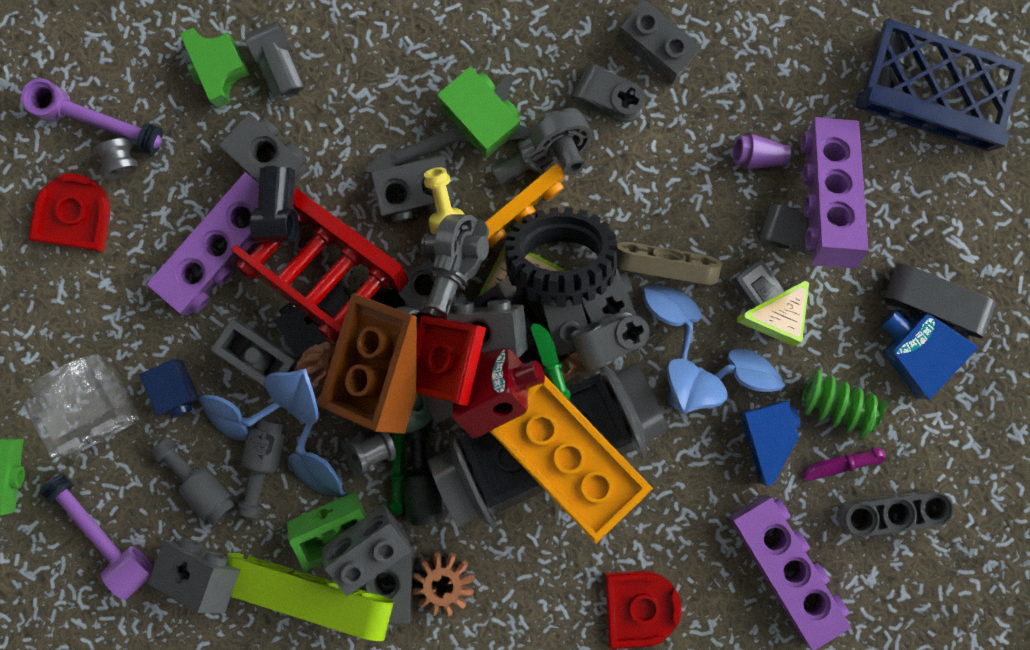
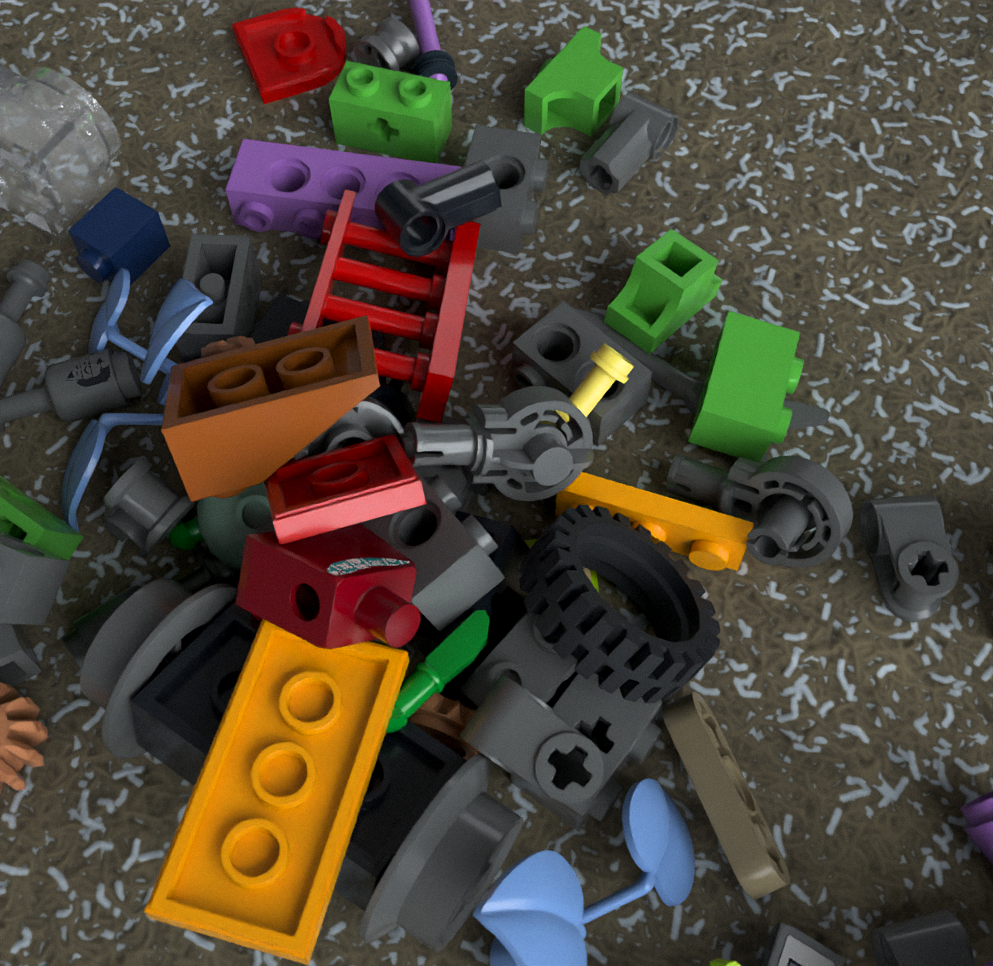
camera: 60 degrees right, 25 degrees down
(170, 184) = (391, 112): none -> bright green brick
(394, 113) = (663, 291): none -> bright green brick
(397, 503) = (172, 566): green piece -> none

